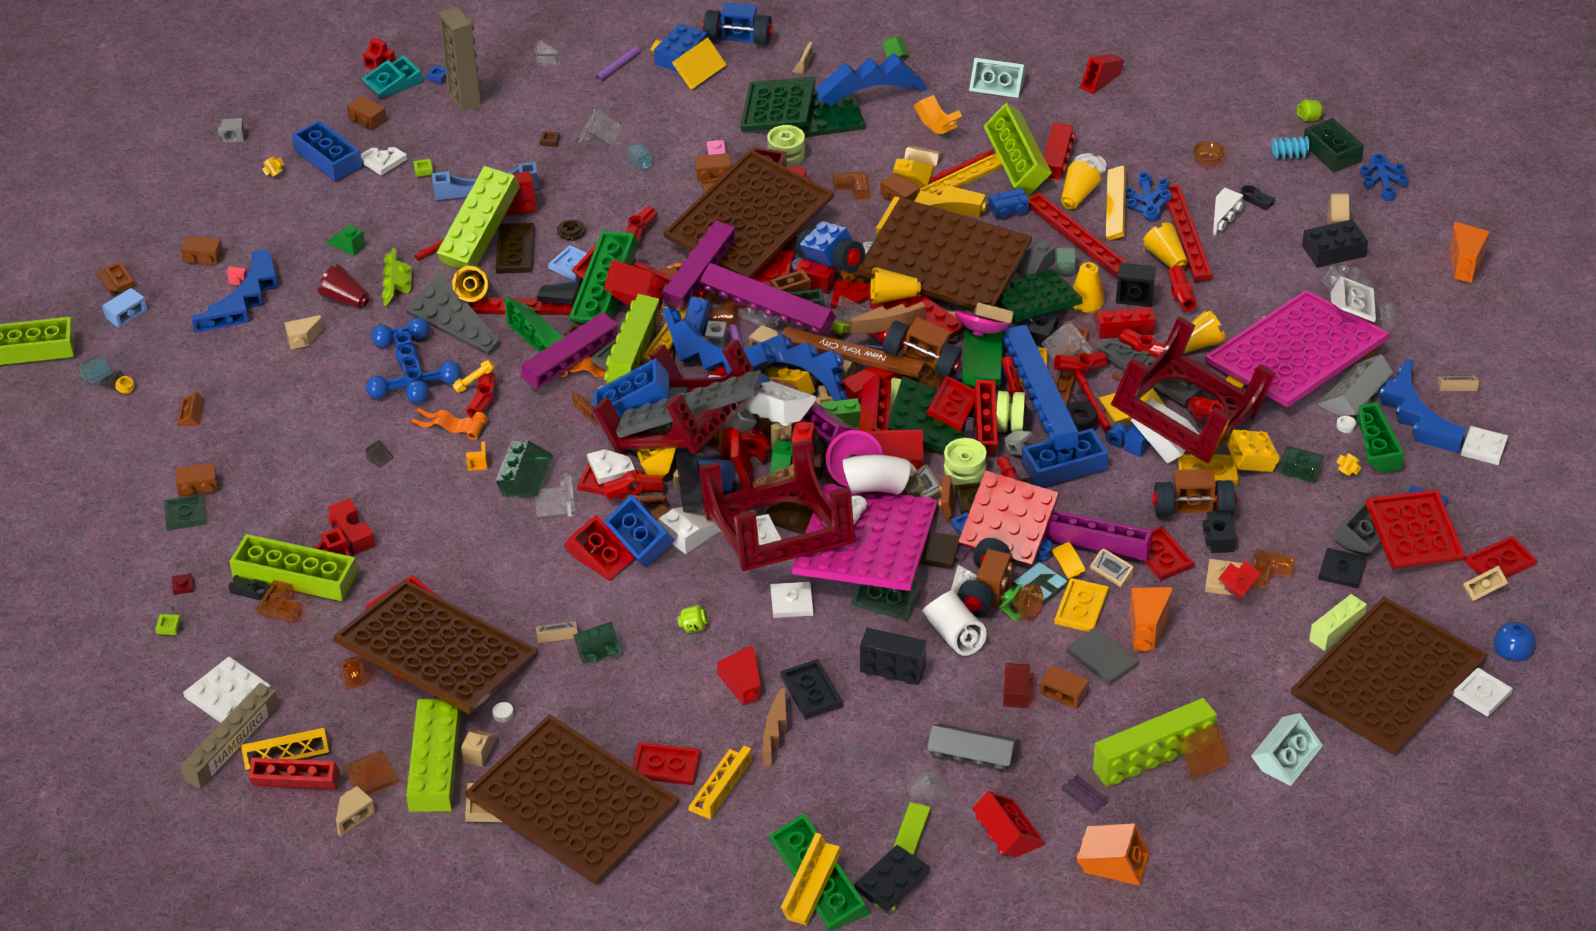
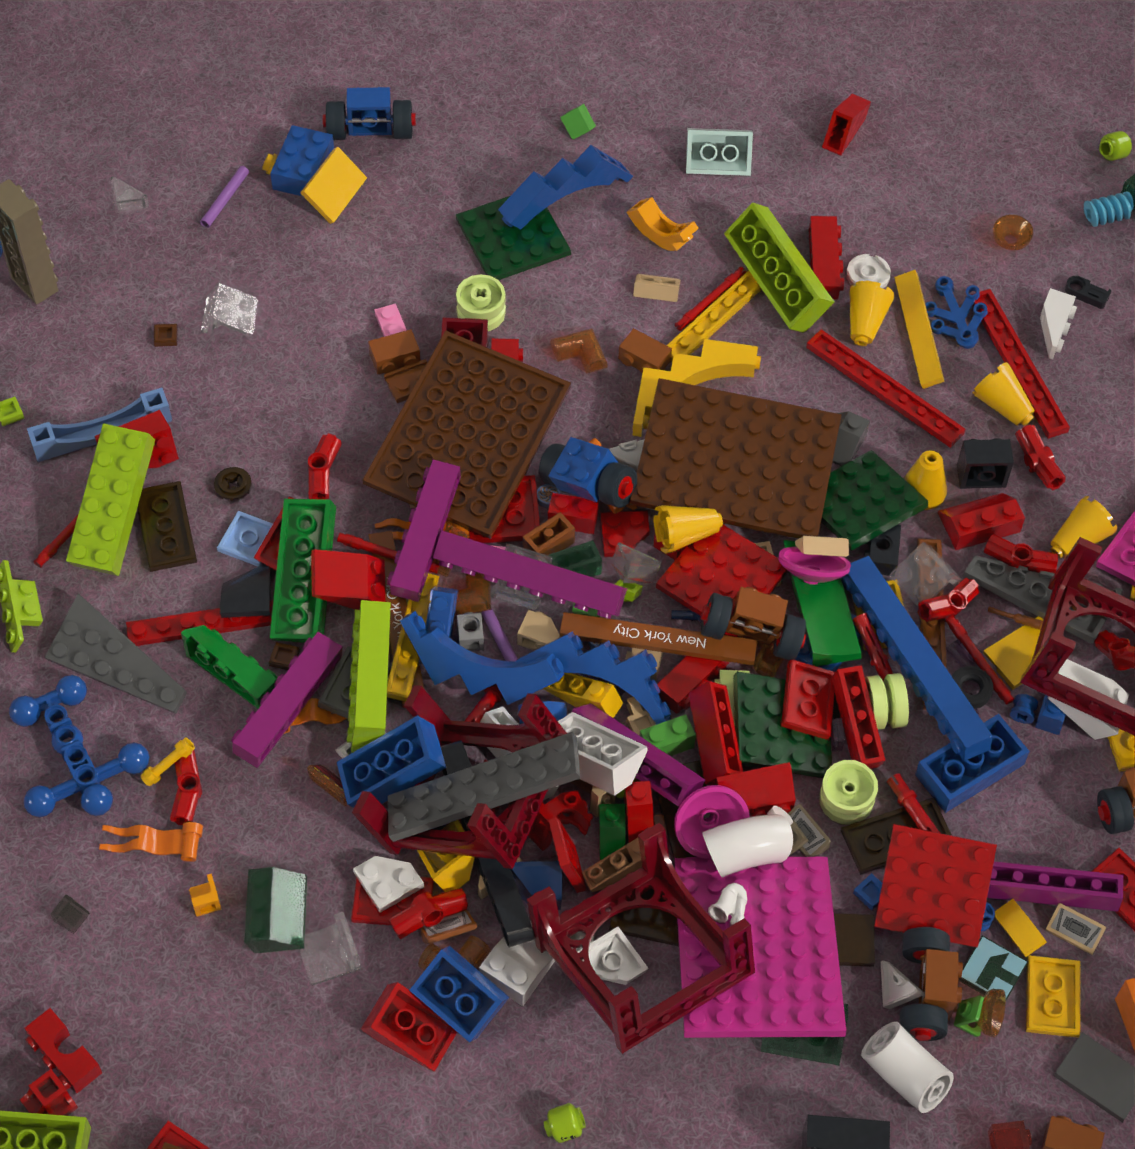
camera: 15 degrees left, 15 degrees up
(470, 283) = (127, 608): yellow cone -> none
(639, 156) = (293, 349): clear light blue brick -> none
(778, 103) = (453, 237): dark green plate -> none
(791, 599) = (682, 1061): white plate -> none
(804, 59) = (463, 155): tan slope -> none
(881, 319) = (686, 581): medium nougat slope -> none
(914, 171) = (653, 319): yellow slope -> none
(947, 499) = (842, 865): dark orange plate -> none
(1008, 203) = (787, 353): blue brick -> none
(1015, 441) = (907, 746): light grey window -> none
(1065, 261) = (883, 435): sand green brick -> none

